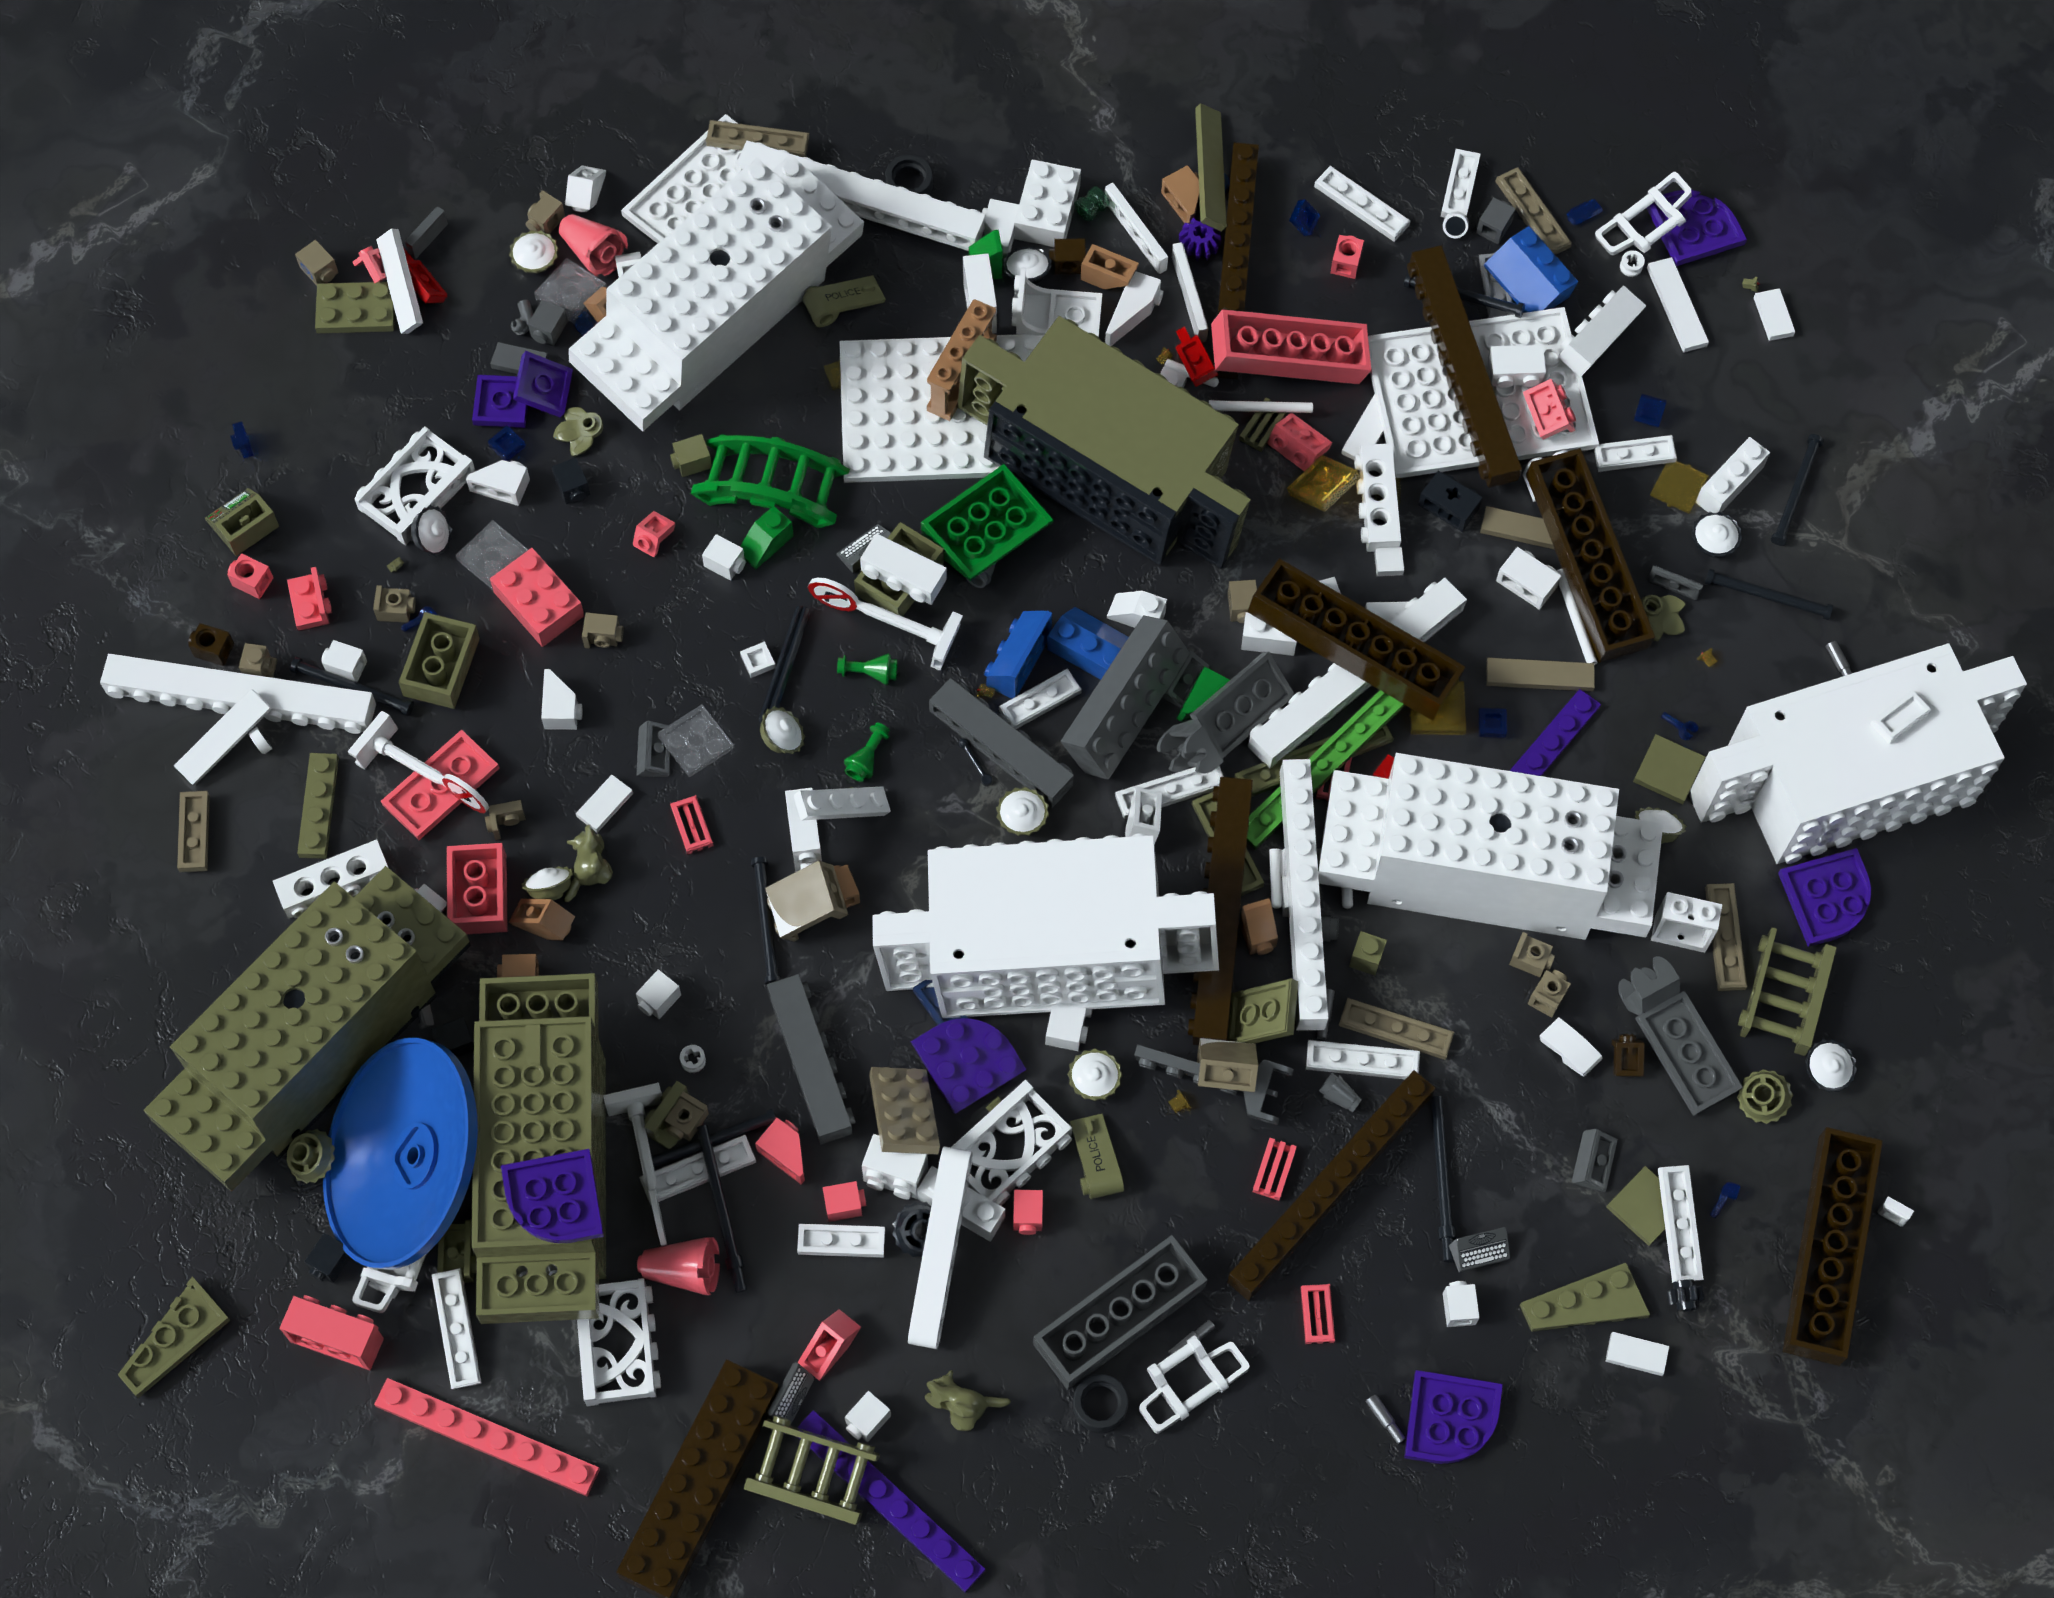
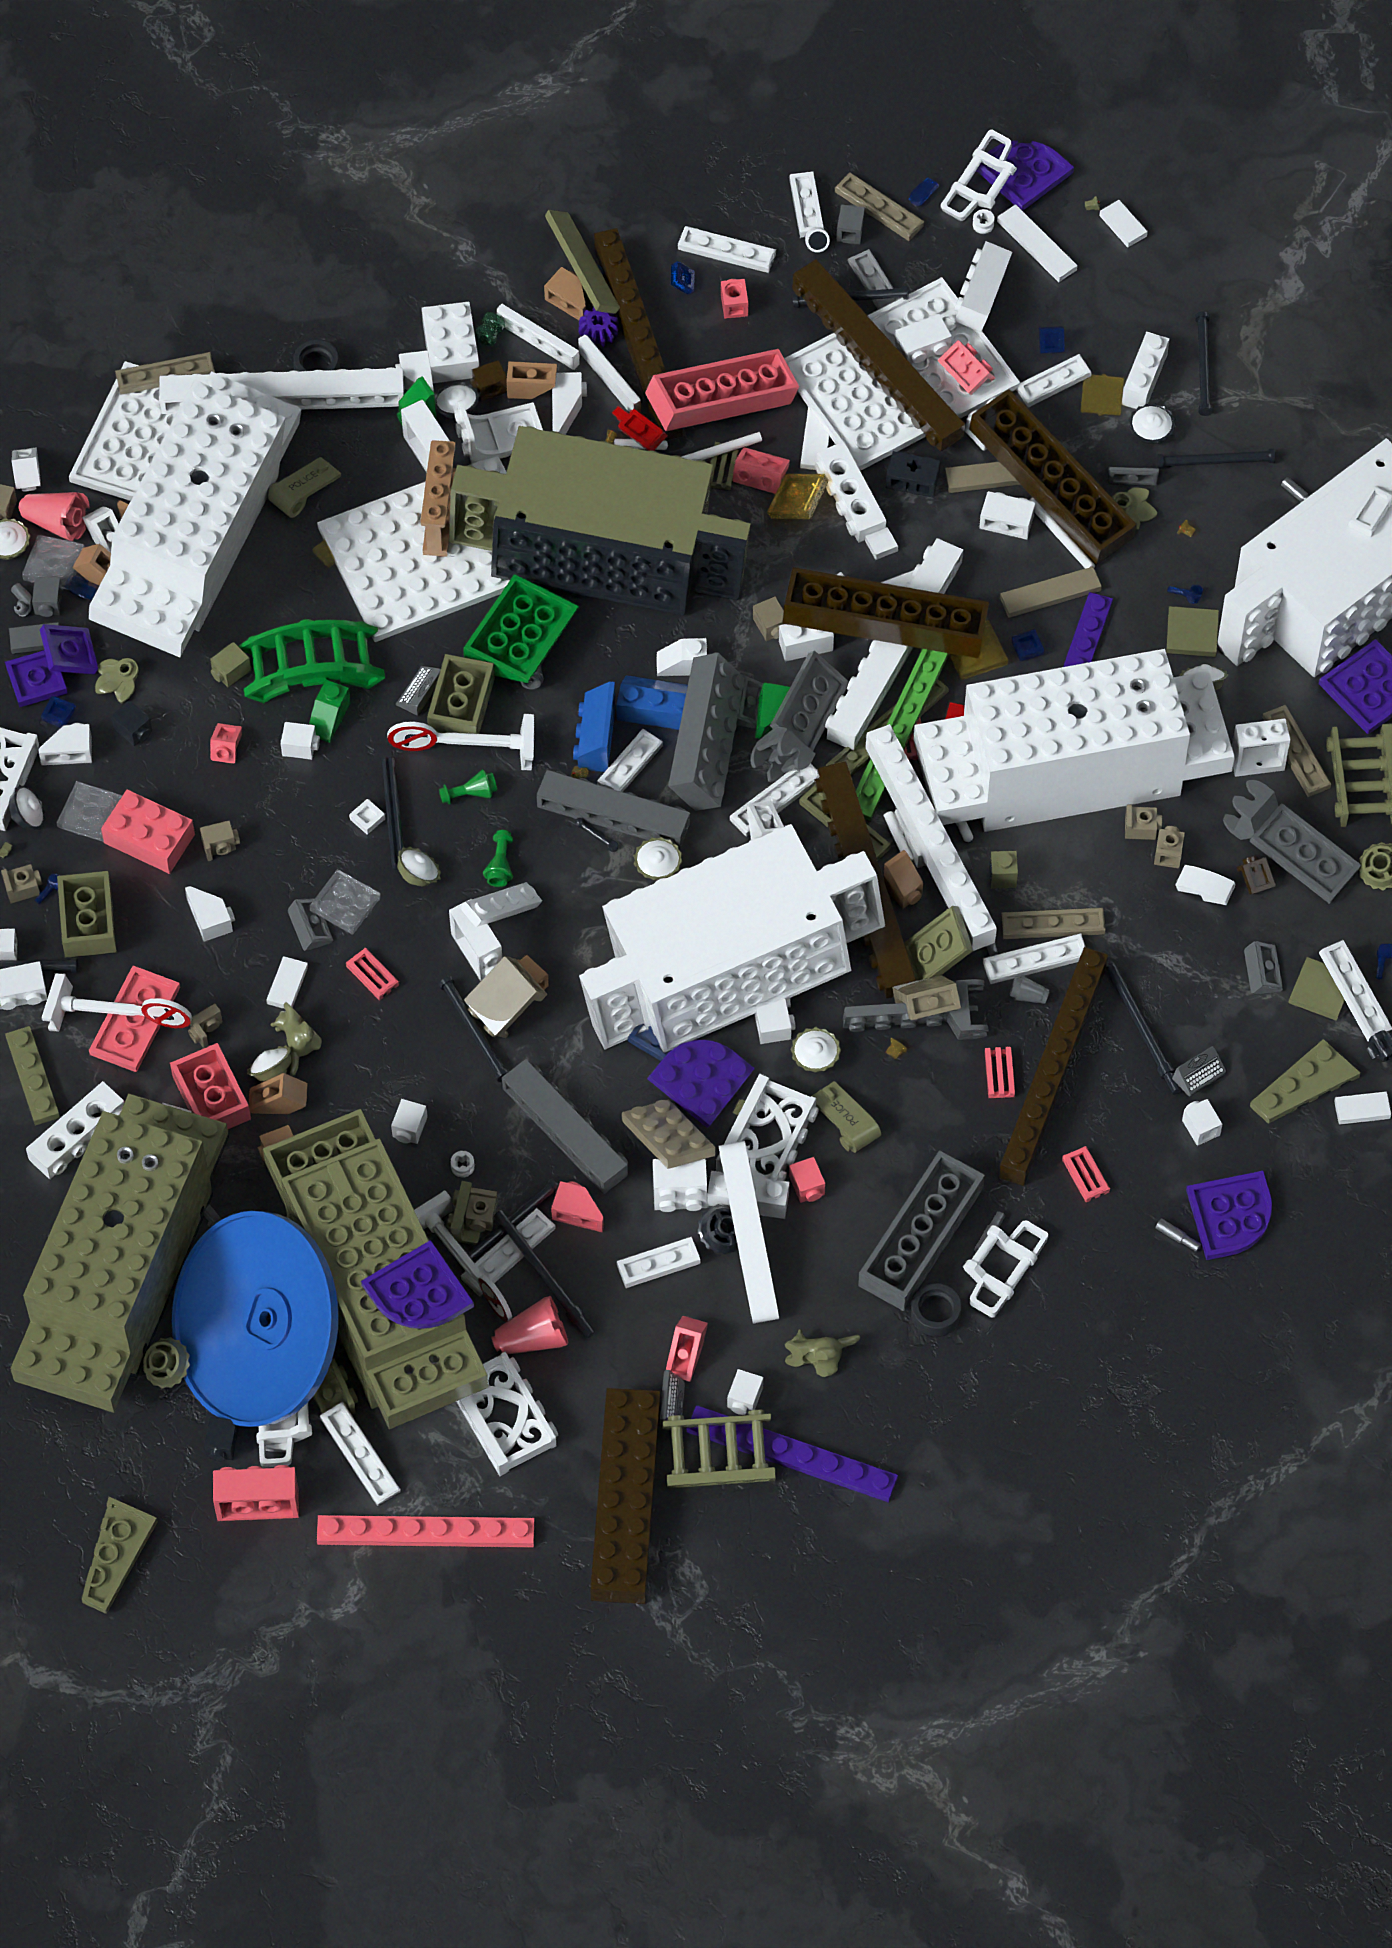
camera: 20 degrees left, 5 degrees down
(843, 1201) = (646, 1230): coral brick -> none
(903, 569) = (468, 691): white brick -> none
(1531, 272) = (901, 257): slope -> none

